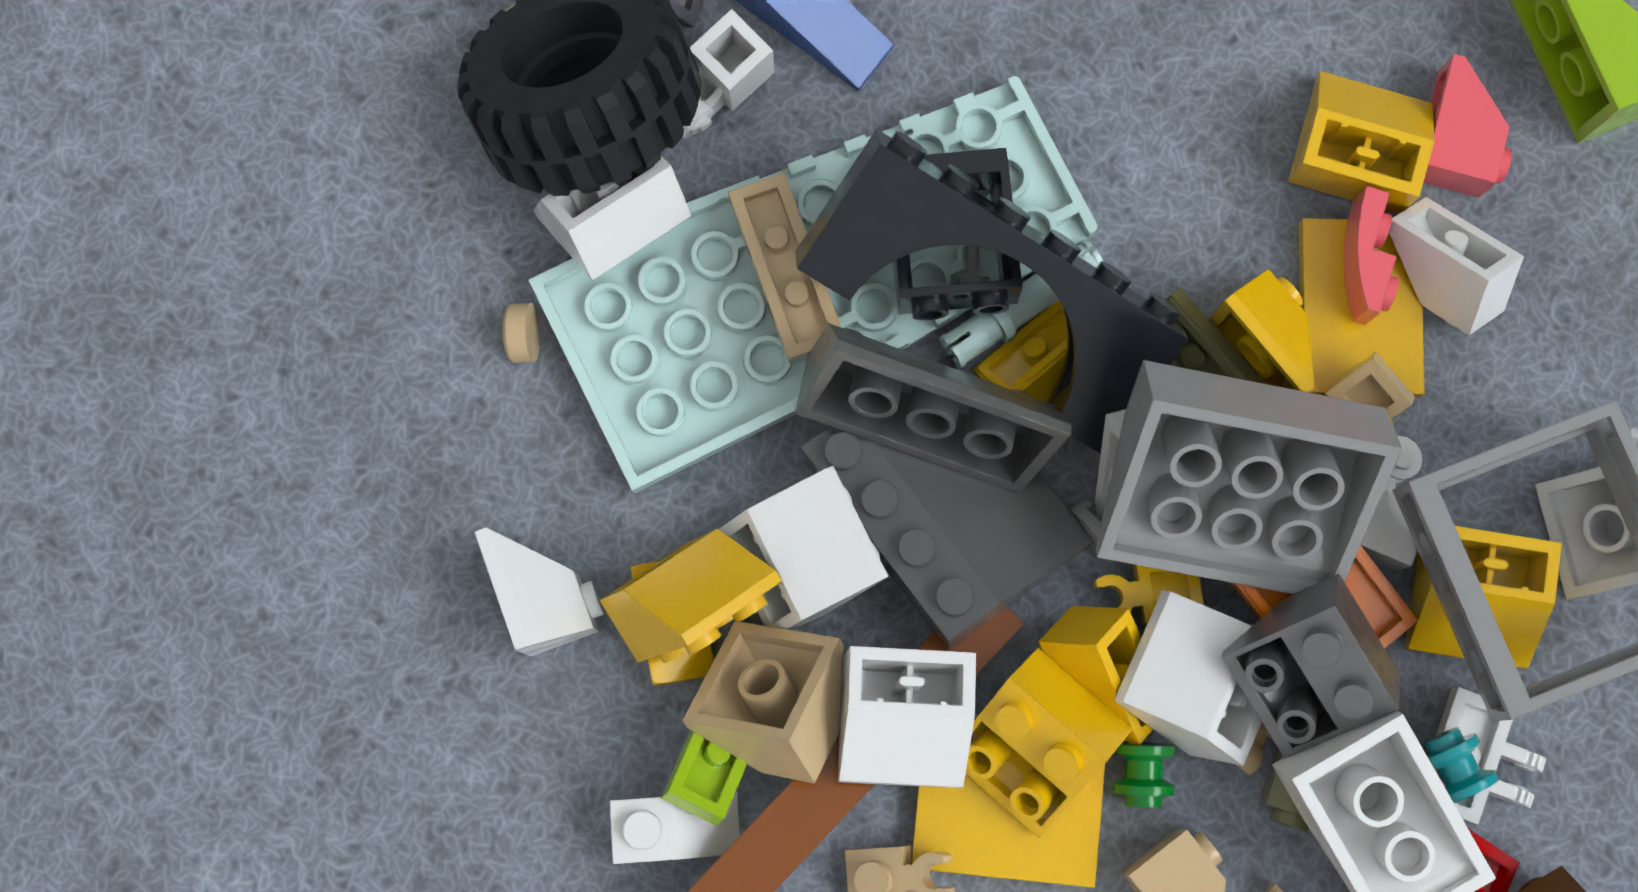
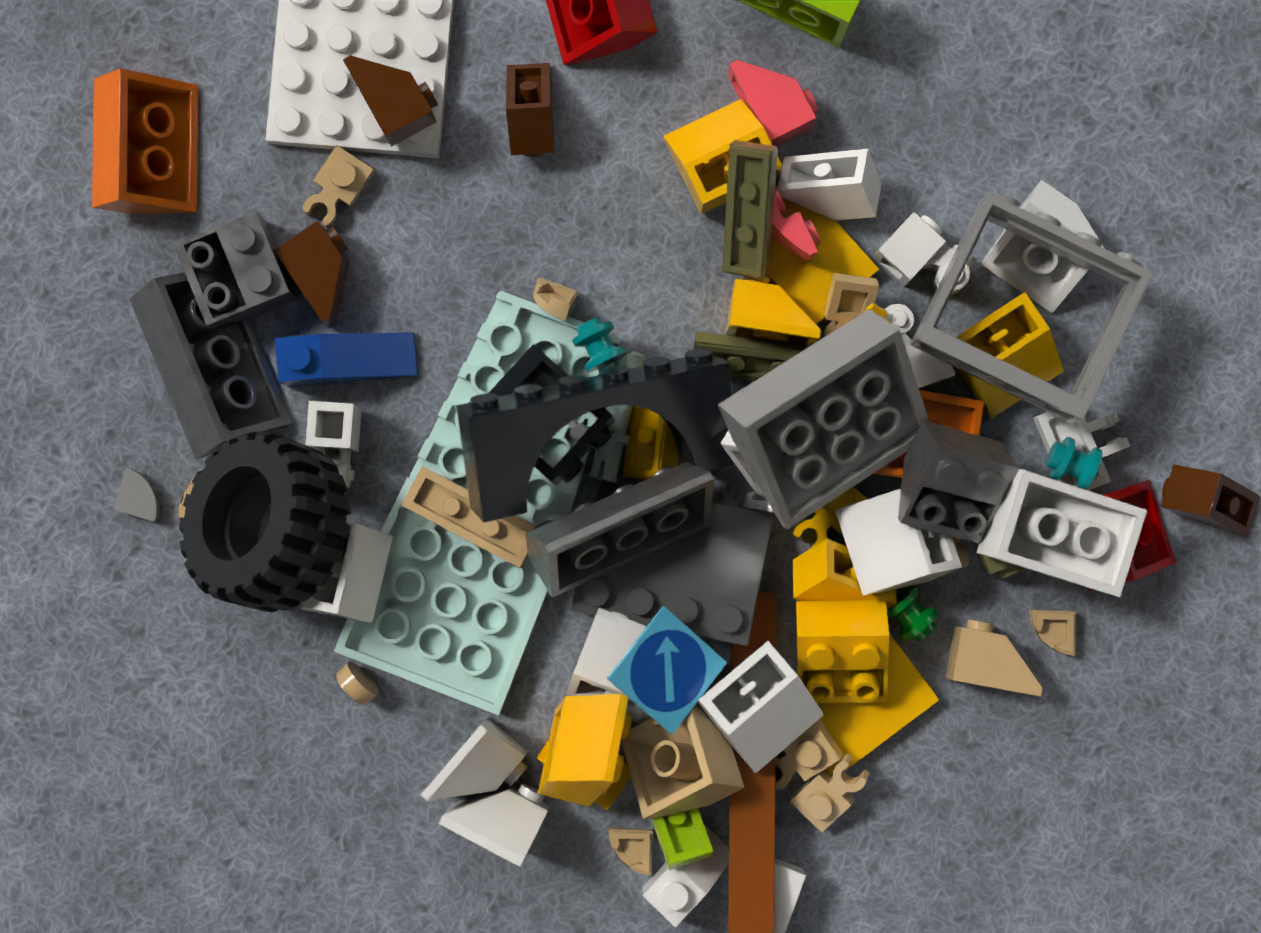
camera: 40 degrees left, 5 degrees up
(569, 516) = (479, 765): none -> white slope
(643, 751) = (633, 847): none -> tan tile
(845, 587) = (667, 670): none -> piece
(908, 815) = (808, 755): none -> tan plate
(1066, 133) = (554, 298): none -> tan tile
(1072, 200) = (596, 340): none -> teal wheel
(1347, 208) = (749, 209): none -> olive tile
(1486, 407) = (918, 247): none -> white brick

